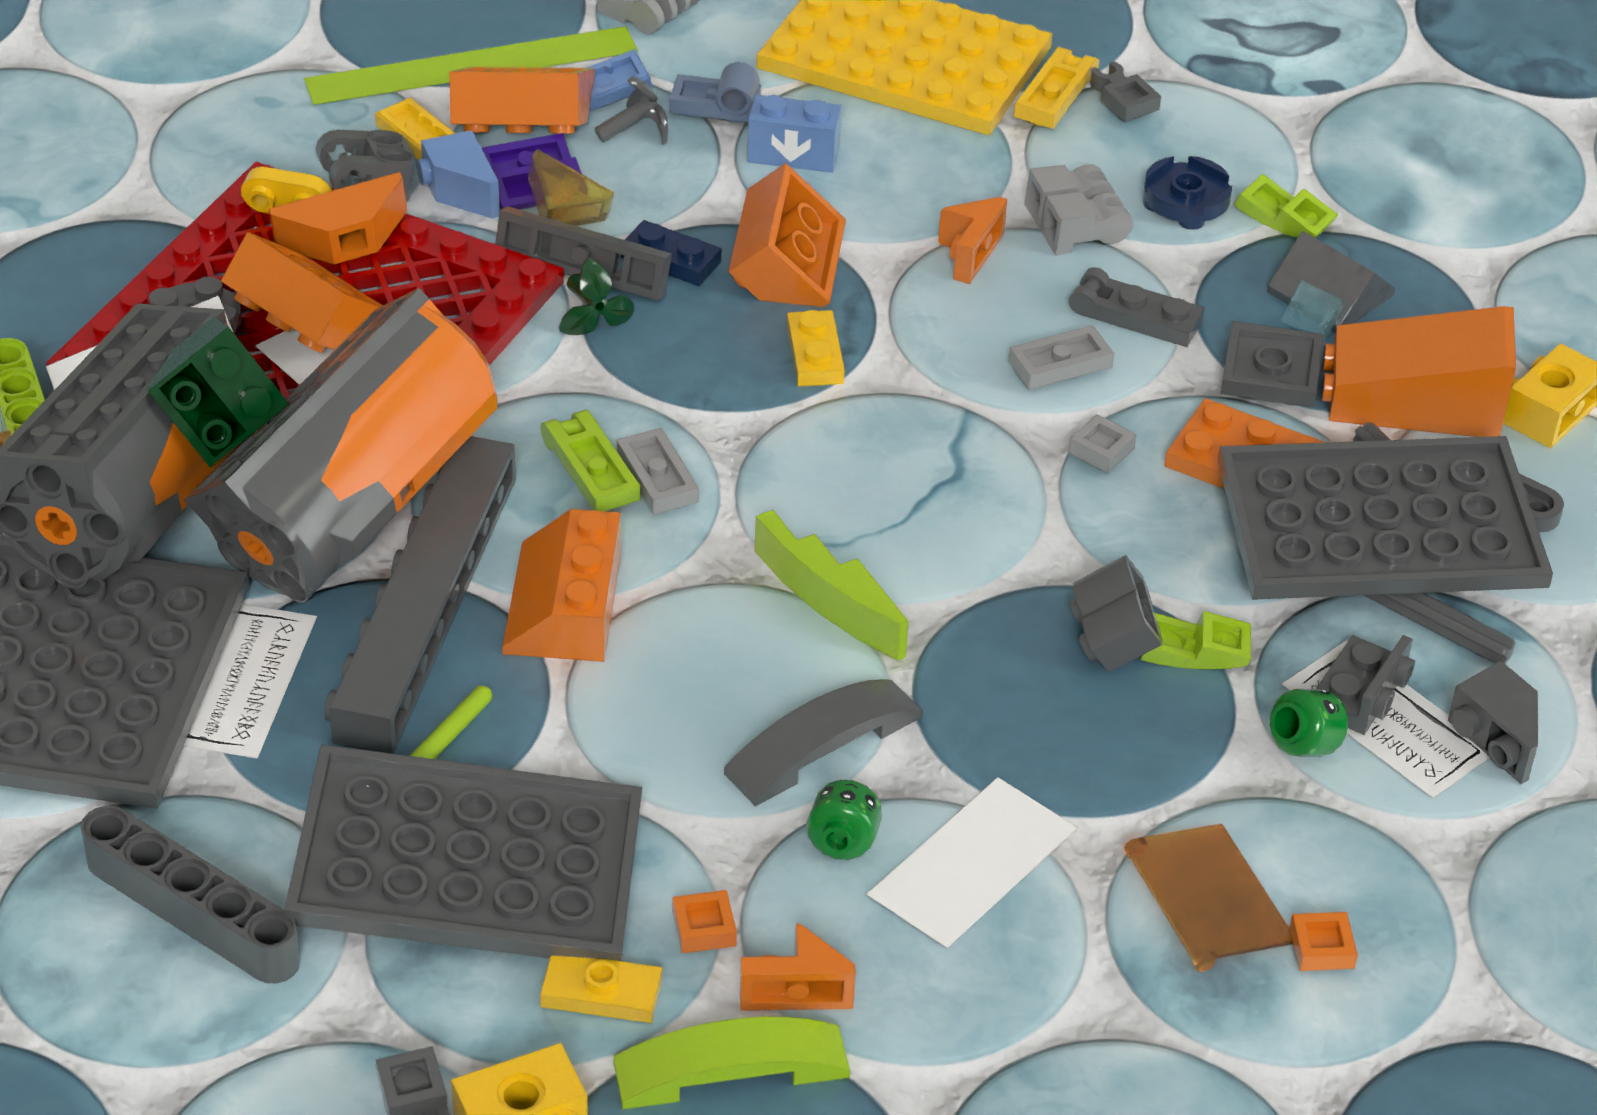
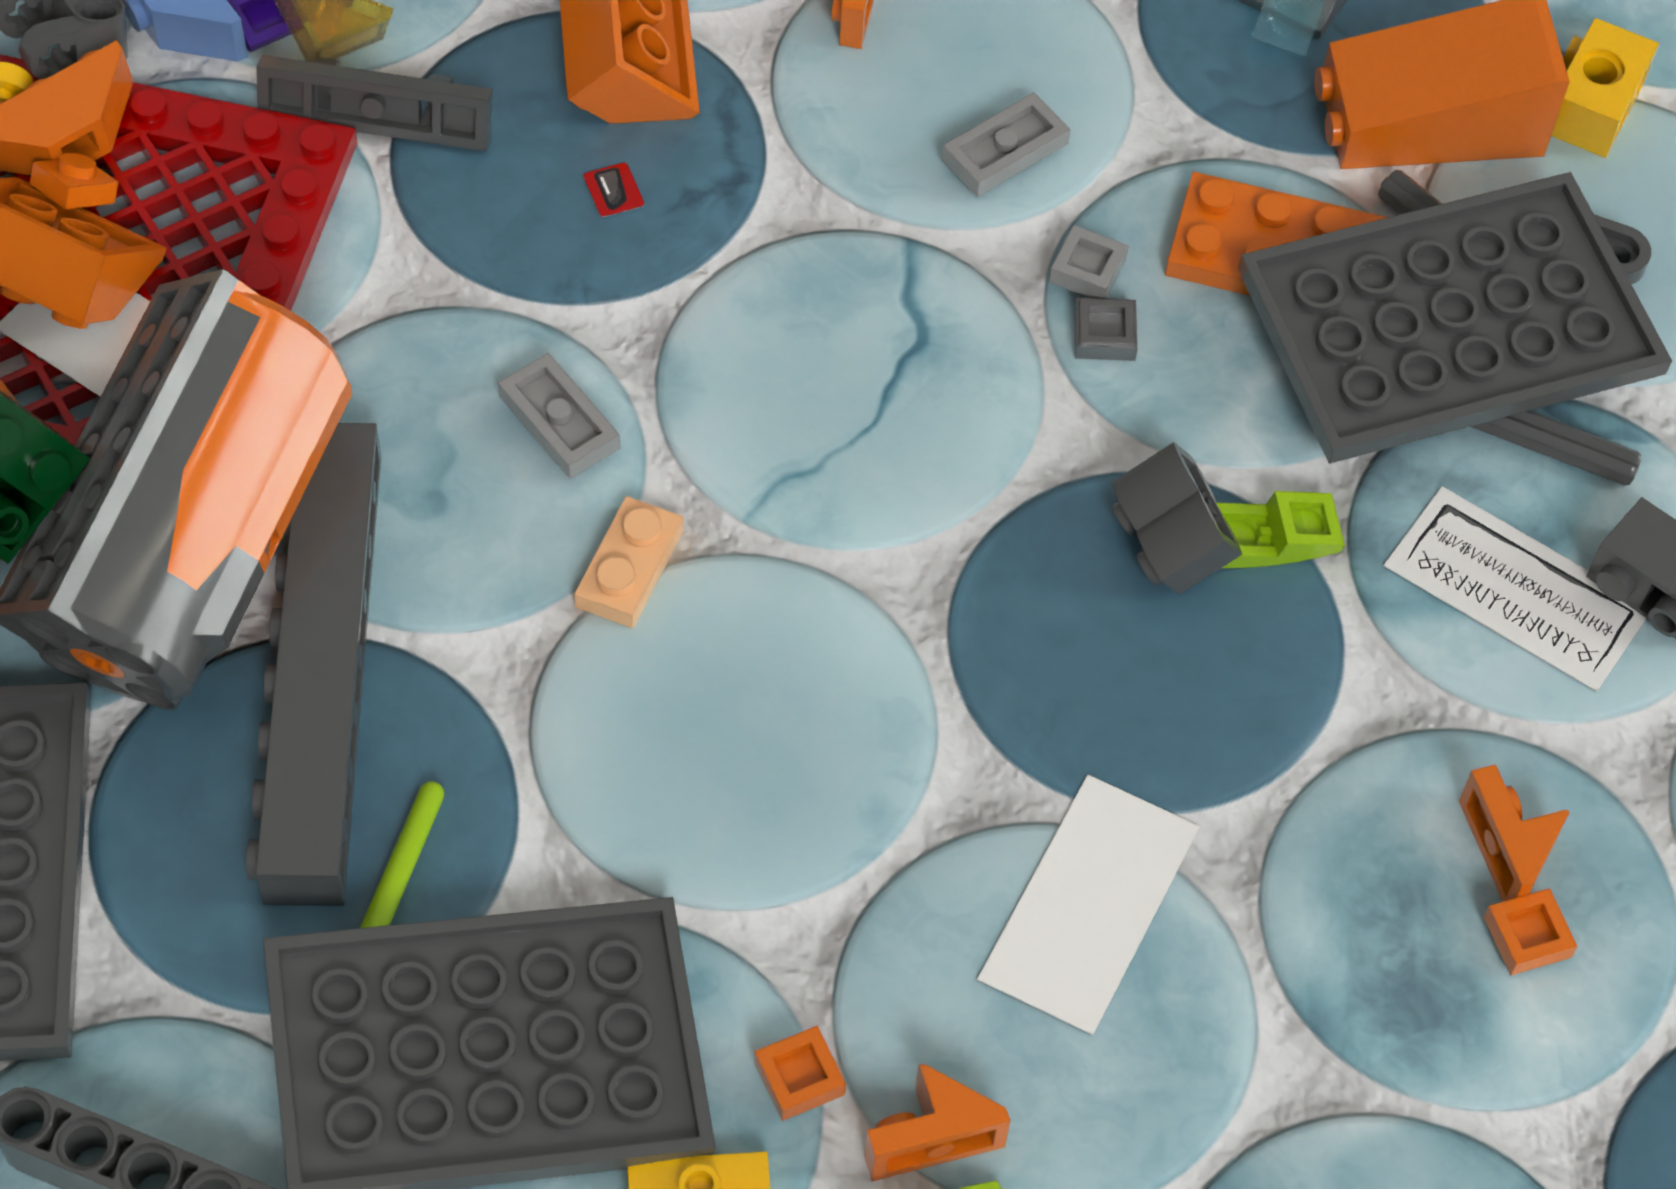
camera: 15 degrees left, 15 degrees up
(250, 681) = (132, 833): white sticker -> none
(342, 260) = (73, 181): none -> orange plate
(566, 588) = (492, 618): orange slope -> none
(591, 461) = (472, 417): lime plate -> none
(592, 288) = (408, 159): dark green plant -> none
(681, 575) = (629, 562): none -> light nougat plate
(691, 257) = (511, 75): dark blue plate -> none
(748, 341) = (613, 189): none -> sticker
(815, 348) = (701, 186): yellow plate -> none
(816, 729) = (861, 766): dark grey slope -> none
(837, 591) = (834, 554): lime slope -> none
(844, 815) = (929, 886): green head -> none
(1104, 490) = (1105, 329): none -> flat silver tile
(1136, 308) = (1073, 50): dark grey plate -> none
(1208, 893) = (1378, 889): clear orange piece -> none
(1272, 364) = (1259, 105): dark grey plate -> none
(1308, 722) = (1439, 628): green head -> none
(1329, 879) = (1509, 846): none -> orange slope
(1366, 679) = (1480, 550): dark grey bracket -> none

